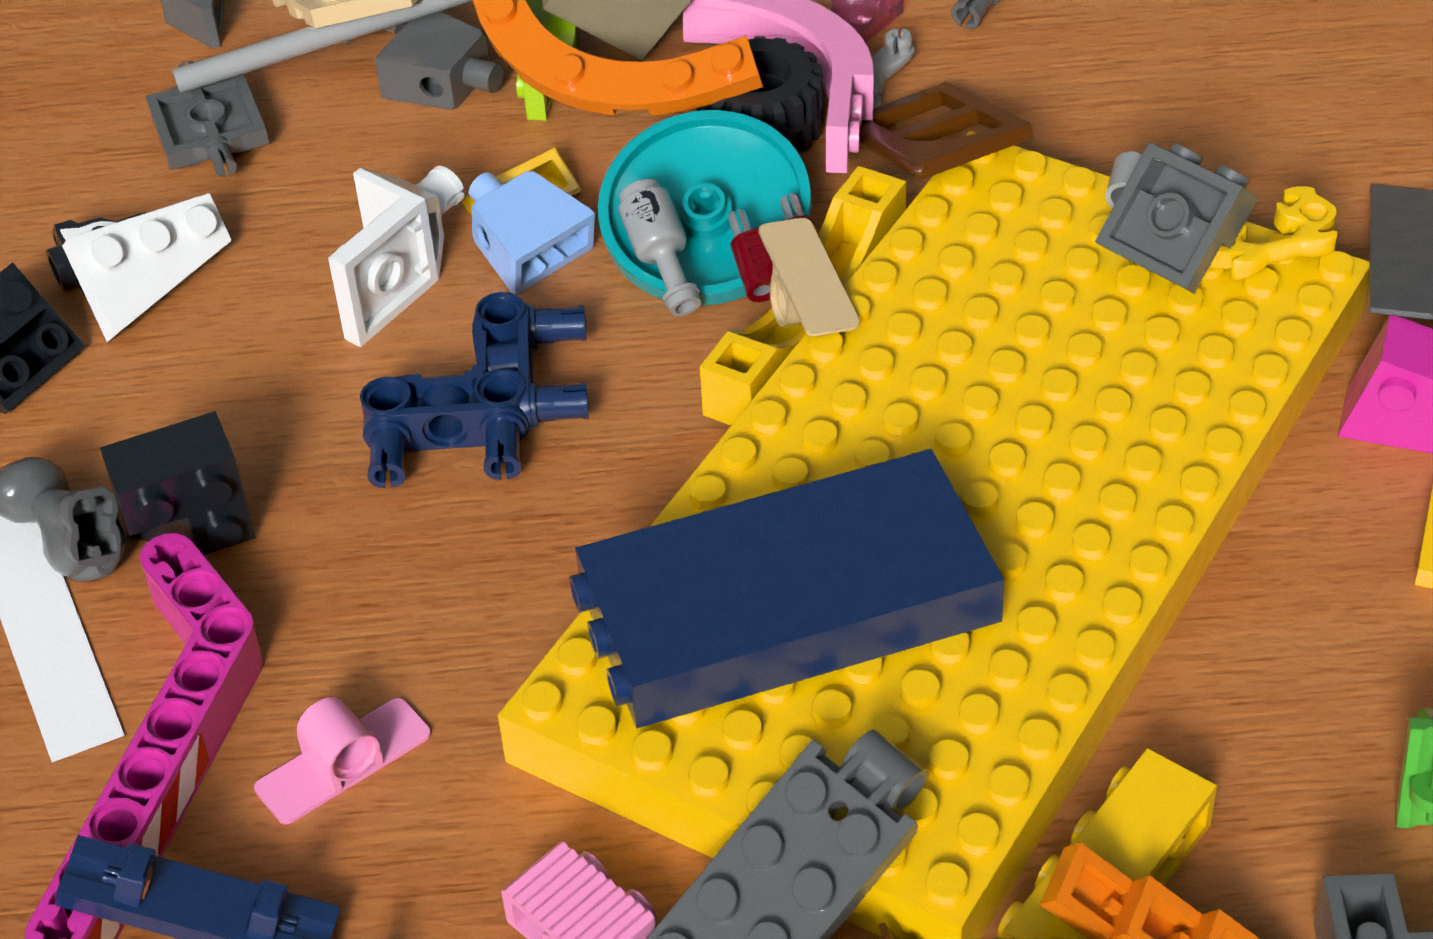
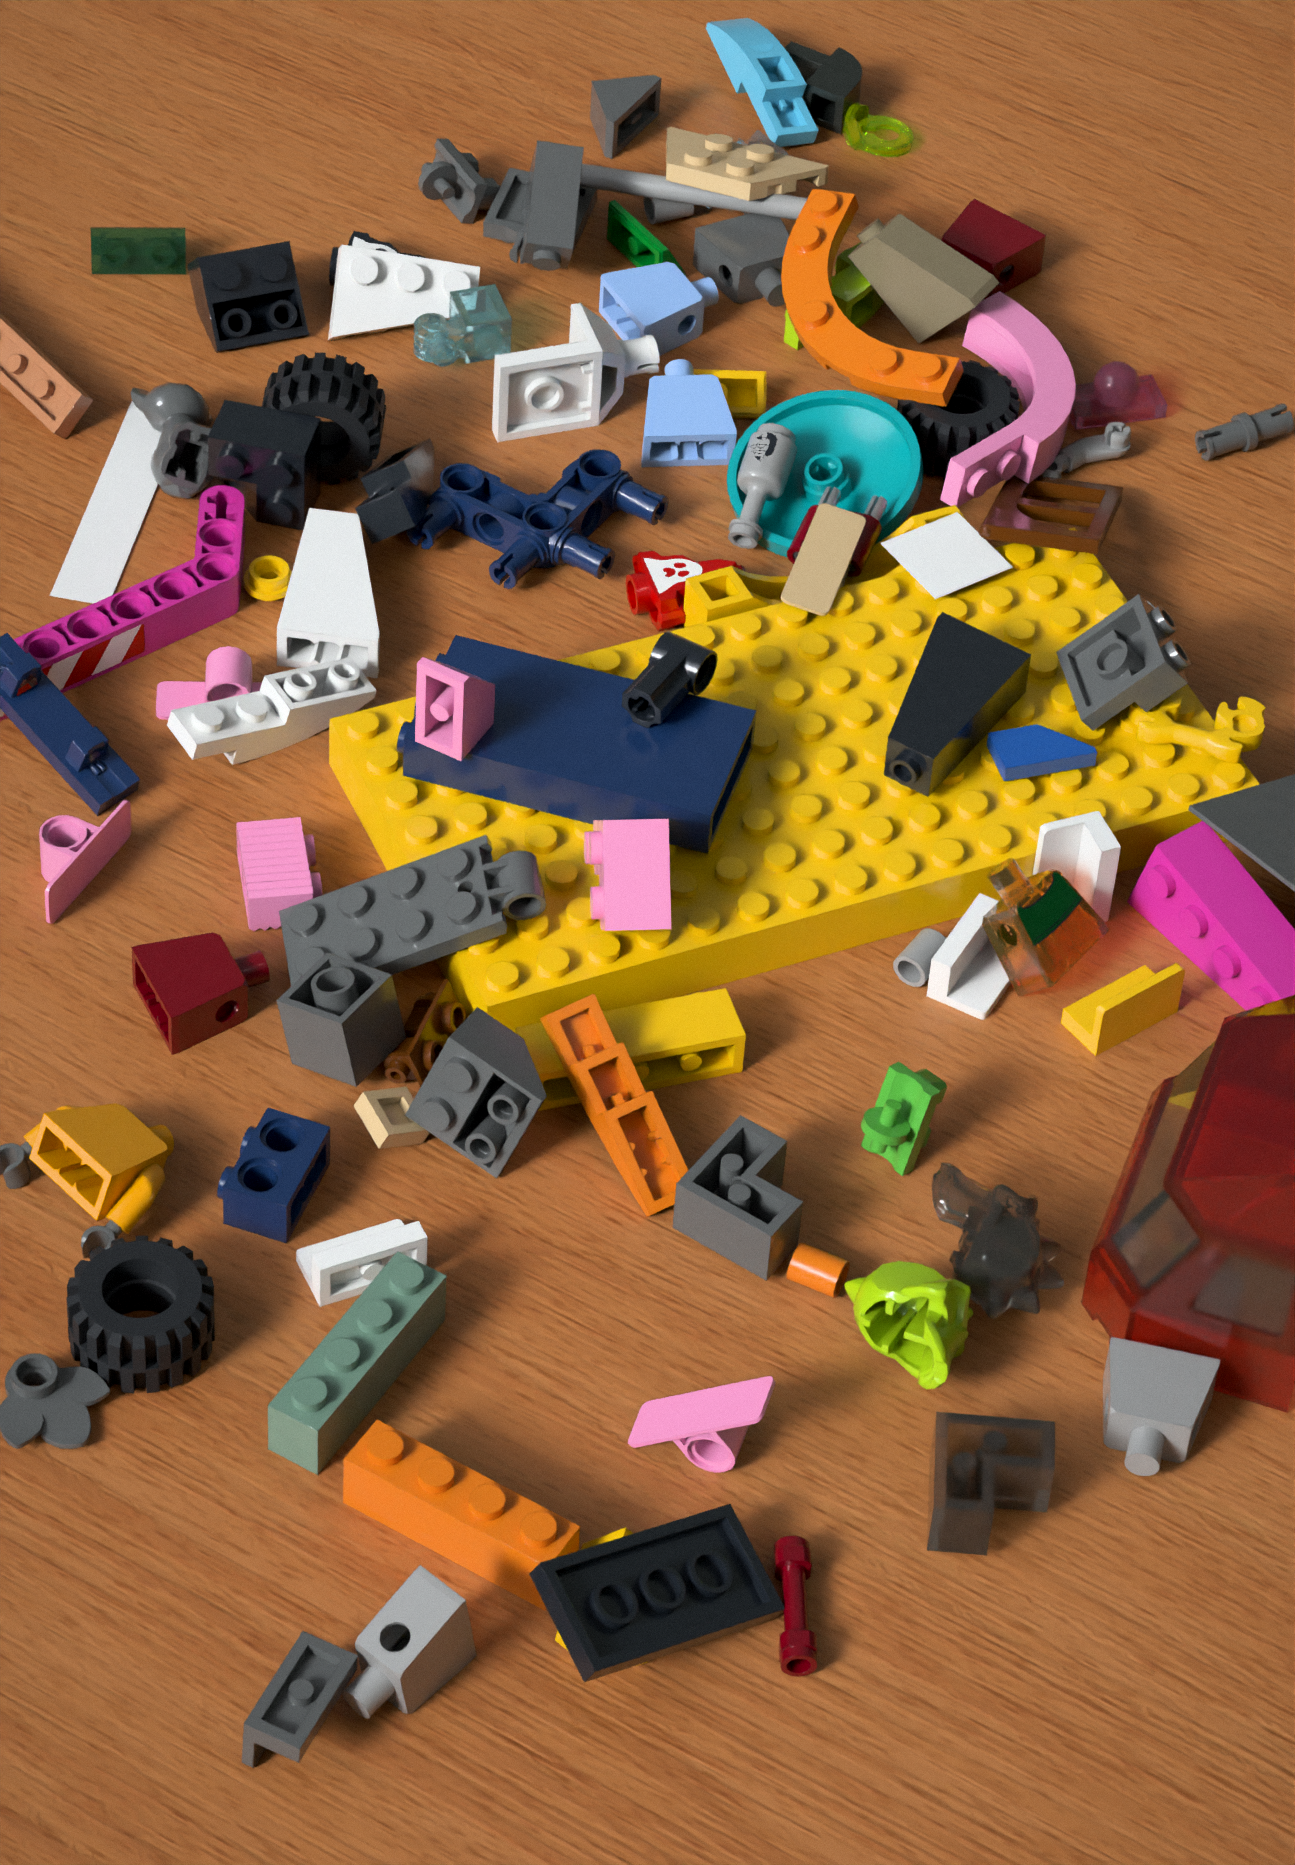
camera: 30 degrees right, 0 degrees up
(106, 134) = (456, 182): none -> dark grey hips
(200, 380) = (339, 393): none -> black tyre
(234, 101) = (551, 205): none -> dark grey slope
(245, 257) = (475, 329): none -> clear light blue brick
(274, 606) = (267, 578): none -> yellow plate
(313, 64) = (665, 210): none -> light grey hinge
(329, 101) = (635, 240): none -> green slope
(329, 444) = (397, 491): none -> black slope
(362, 591) = (329, 597): none -> white slope
(394, 140) = (656, 303): none -> light blue torso
(417, 746) = (282, 713): none -> white slope
(664, 386) = (660, 585): none -> red rock
(675, 627) = (451, 708): none -> bright pink slope
(836, 459) = (672, 672): none -> black piece
(901, 213) = (946, 555): none -> white sticker
(994, 678) = (632, 873): none -> bright pink brick
(1067, 339) = (952, 702): none -> black slope
(1176, 341) = (1036, 752): none -> blue tile
(1250, 600) = (915, 960): none -> light grey hinge
(1297, 574) = (966, 967): none -> white panel
(1309, 422) = (1084, 854): none -> white panel
(1337, 505) = (1039, 926): none -> clear orange torso

